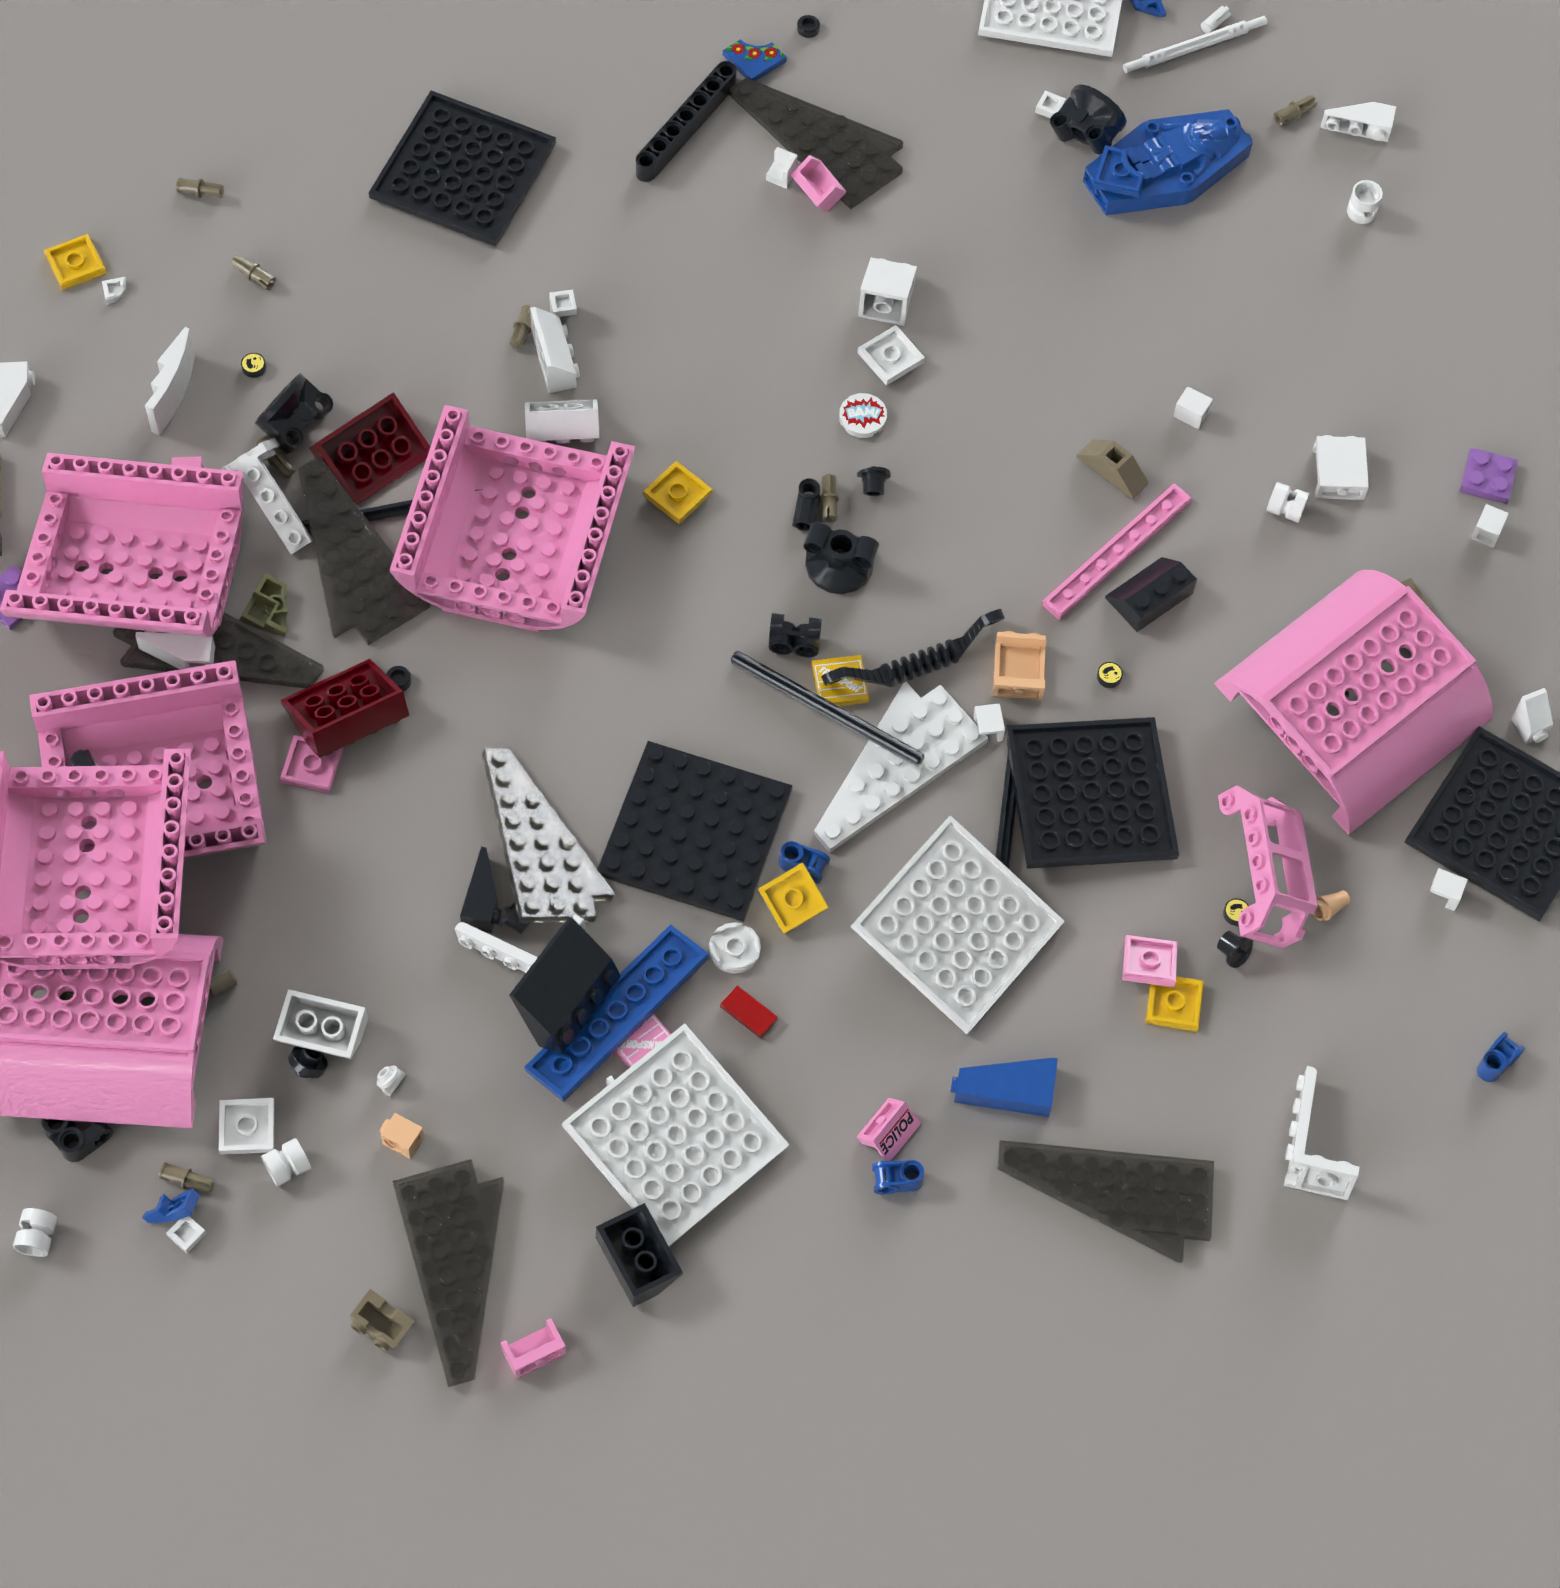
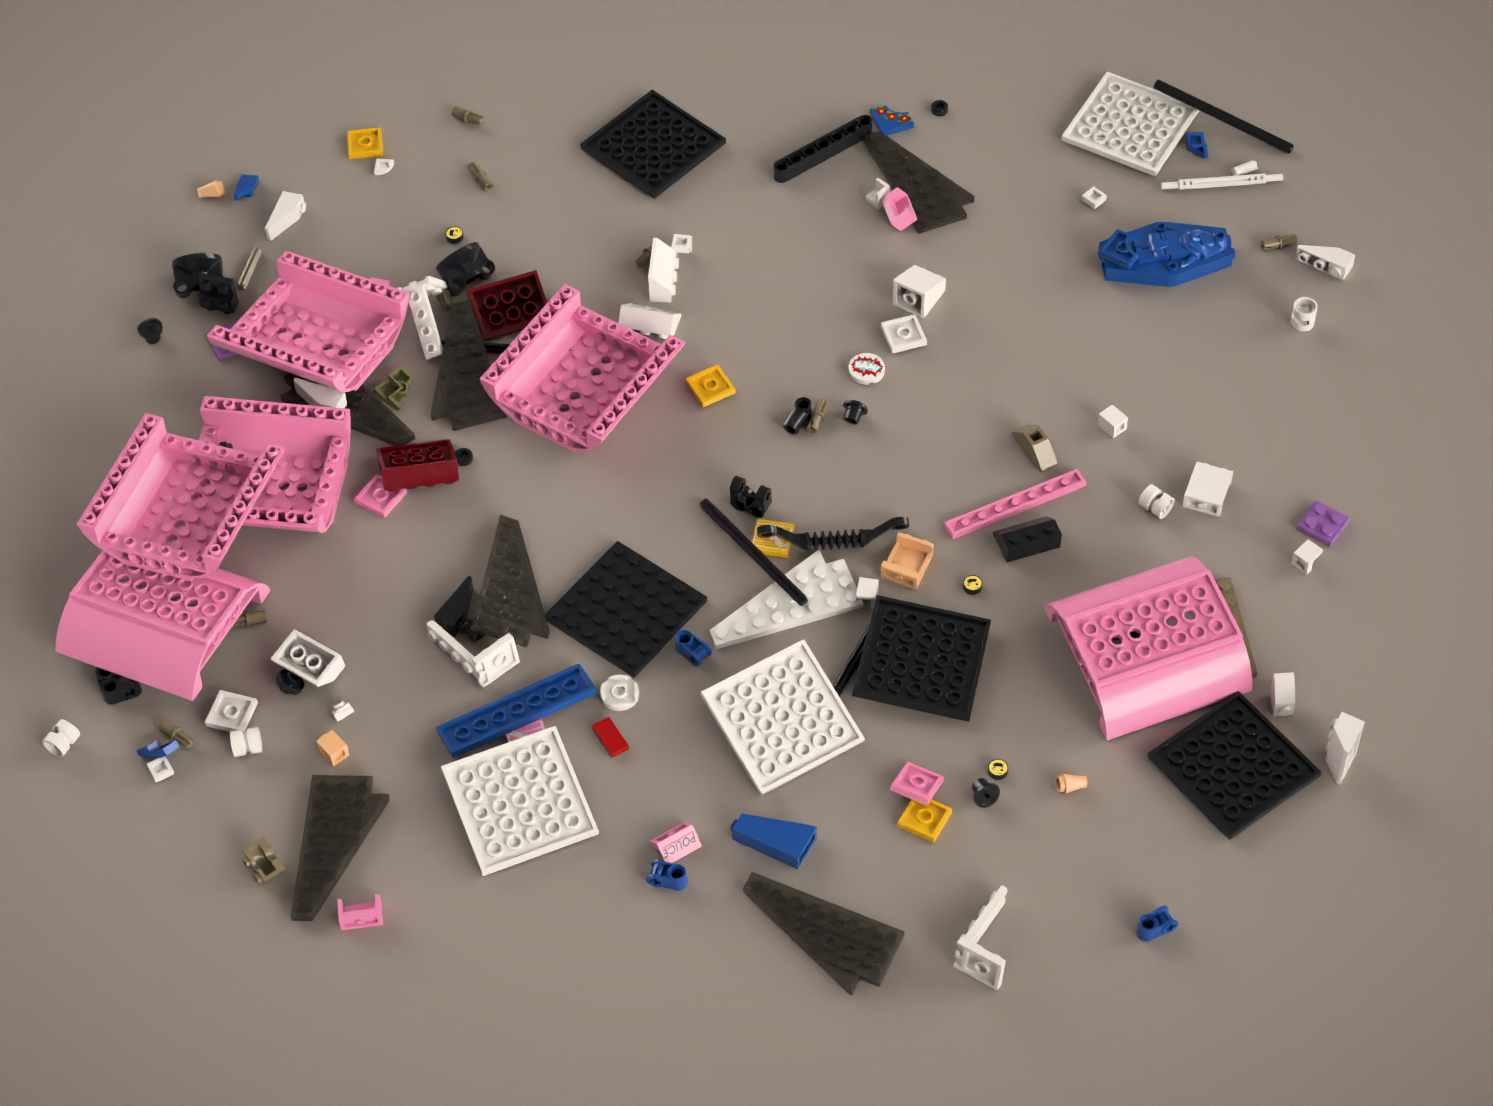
camera: 25 degrees right, 10 degrees down
(171, 382) = (392, 229): white slope -> none
(564, 987) = (481, 677): black slope -> none
(638, 1254) = (458, 870): black slope -> none
(793, 898) = (673, 669): yellow plate -> none
(837, 571) = (804, 455): black piece -> none
(1088, 118) = (1115, 210): black piece -> none
(1293, 849) = (1053, 734): bright pink windscreen -> none
(1448, 886) = (1167, 795): white panel -> none

